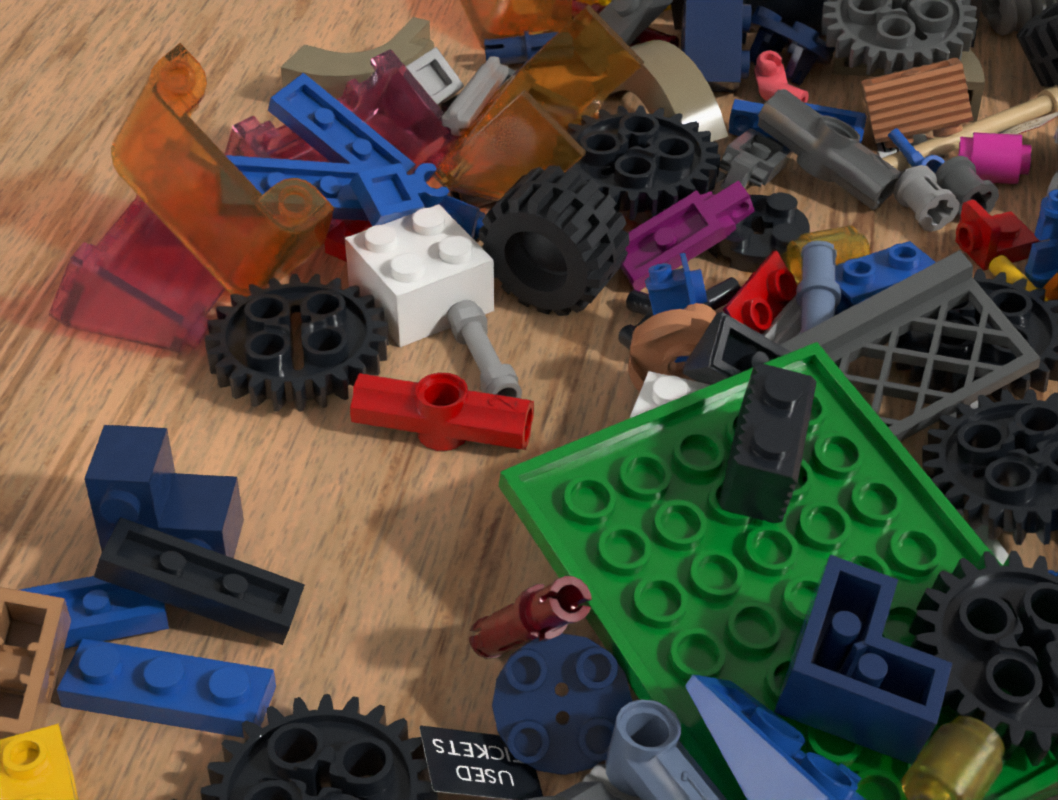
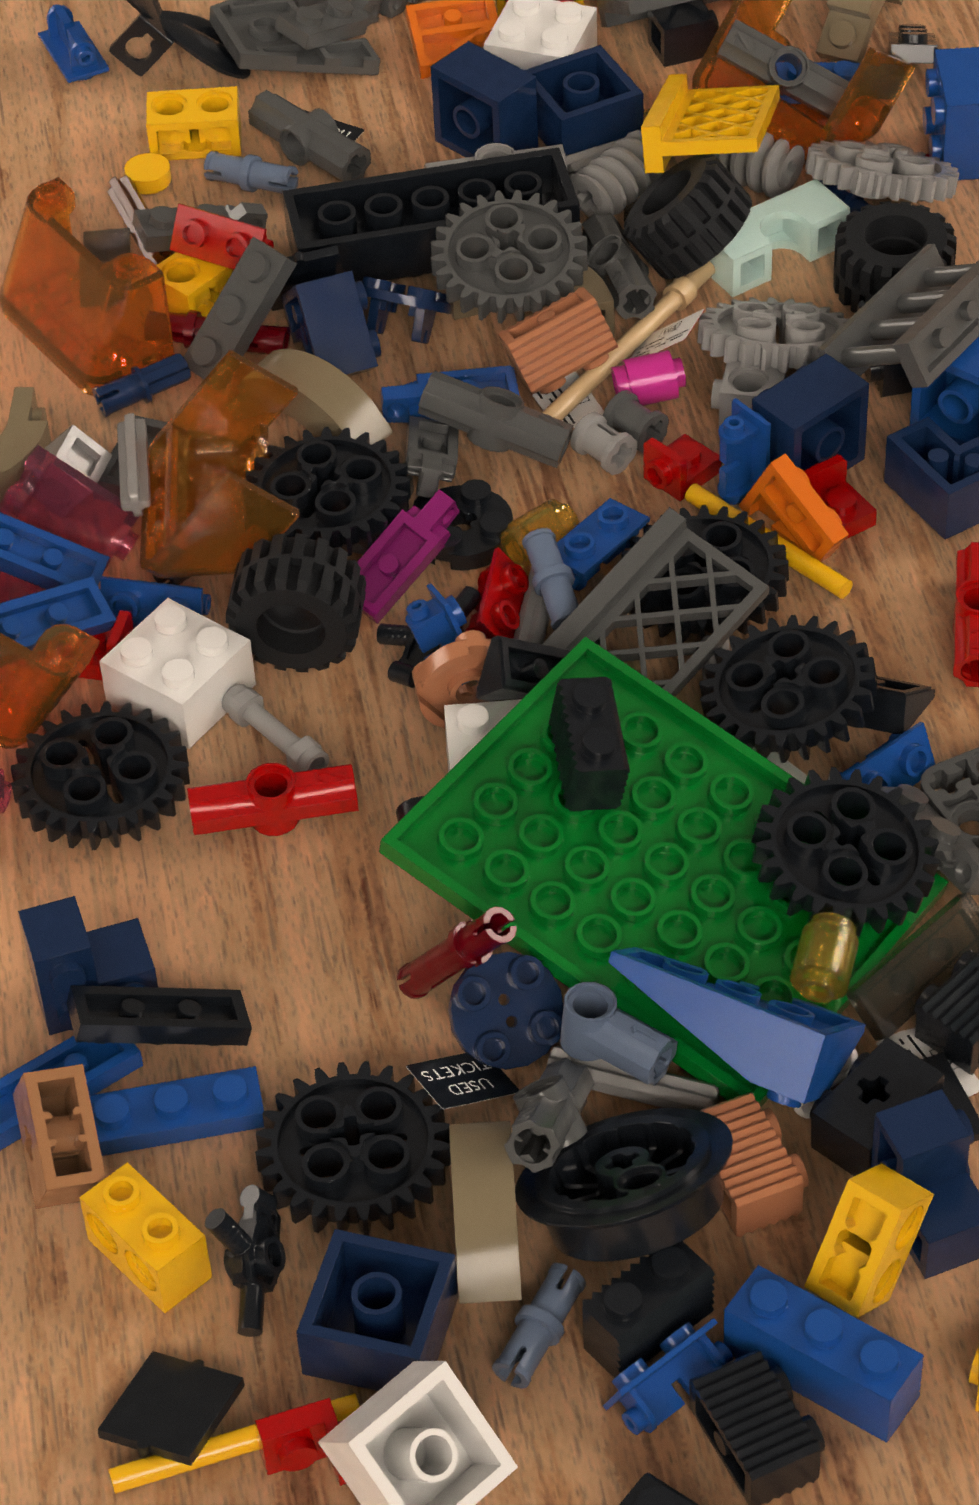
camera: 20 degrees left, 5 degrees up
(391, 194) = (124, 600): blue plate -> none
(771, 77) = (405, 353): coral arm -> none
(852, 677) = (727, 912): dark blue brick -> none
(913, 157) = (578, 403): blue hand -> none
(1002, 63) = (619, 266): none -> dark grey piece

